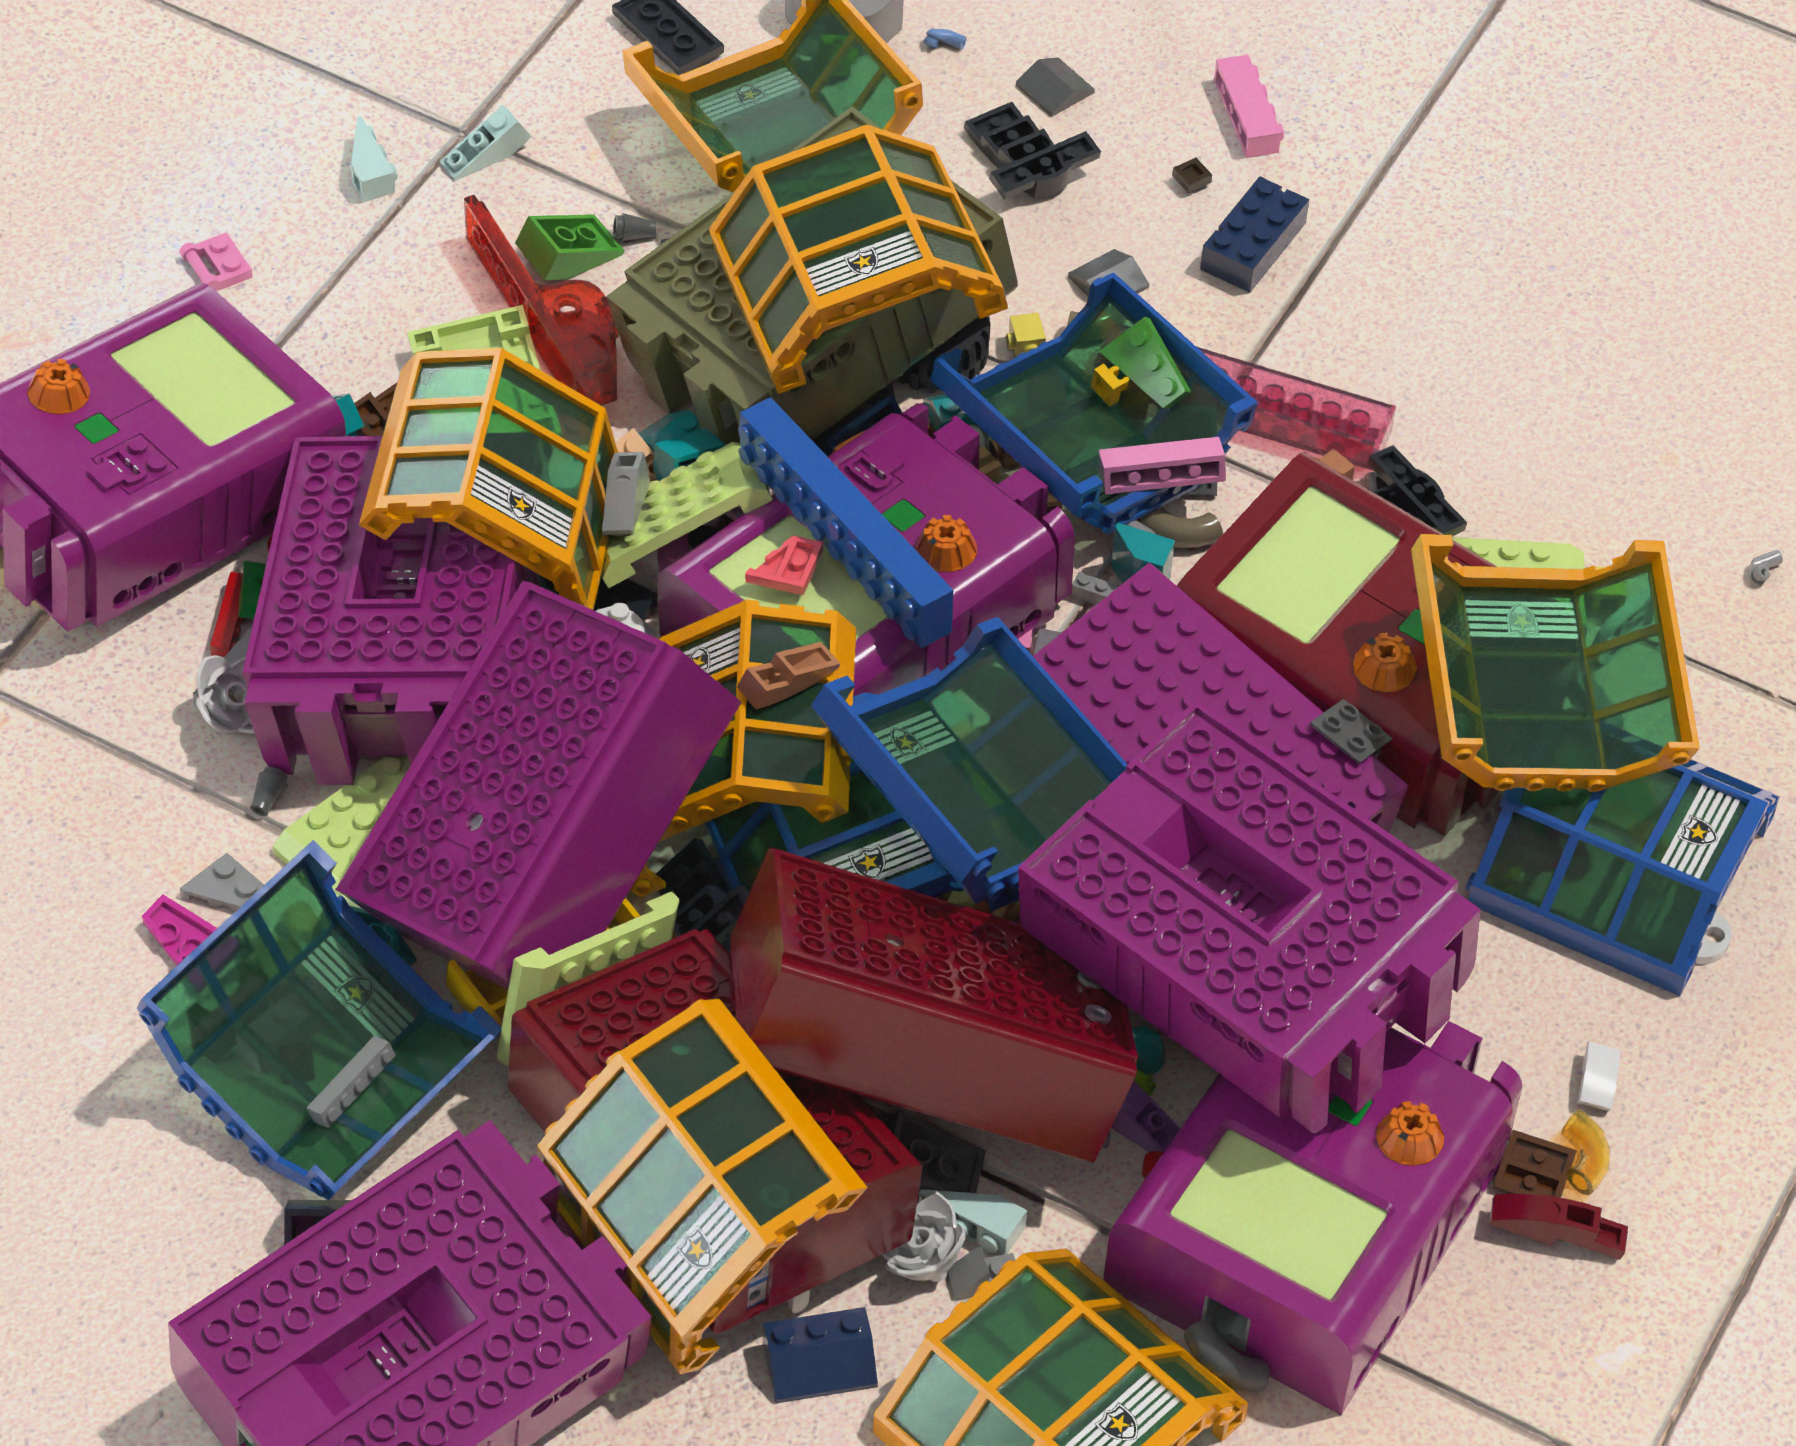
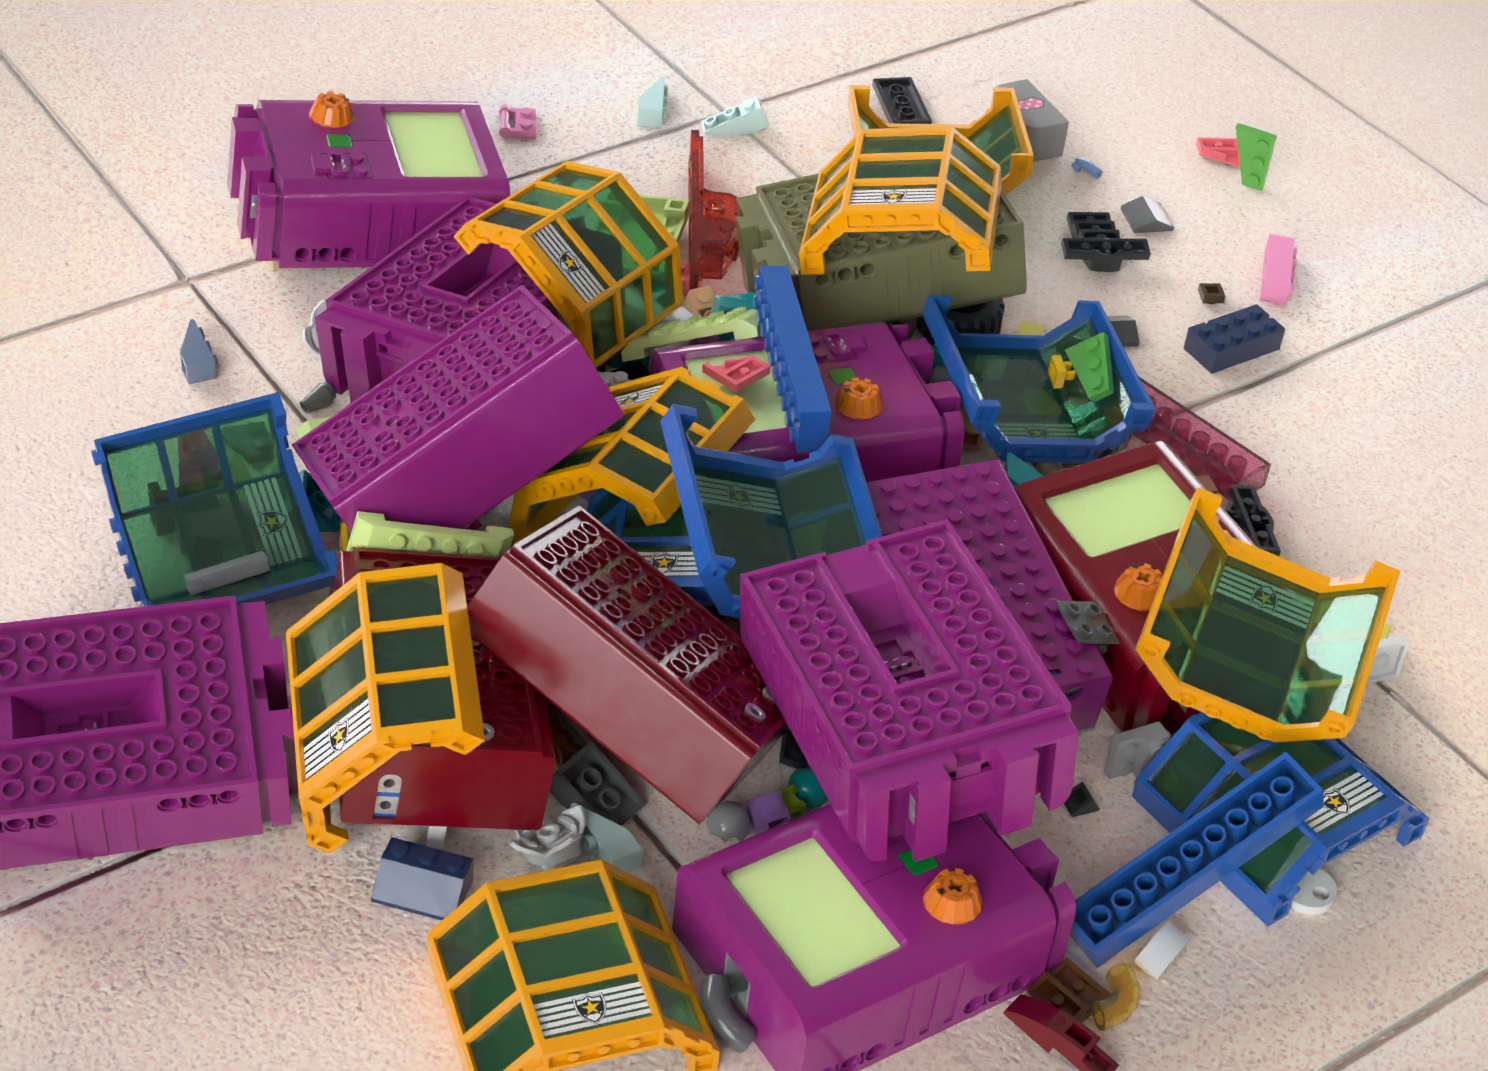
camera: 25 degrees right, 10 degrees down
(83, 799) = (196, 356): none -> sand blue slope
(566, 244) = (741, 178): bright green slope -> none
(625, 492) = (670, 304): light grey slope -> none
(787, 674) = (650, 411): nougat slope -> none
(1162, 465) = (1063, 427): bright pink brick -> none
(1461, 846) = (1135, 749): none -> light grey plate
(1596, 959) = (1194, 858): none -> blue brick

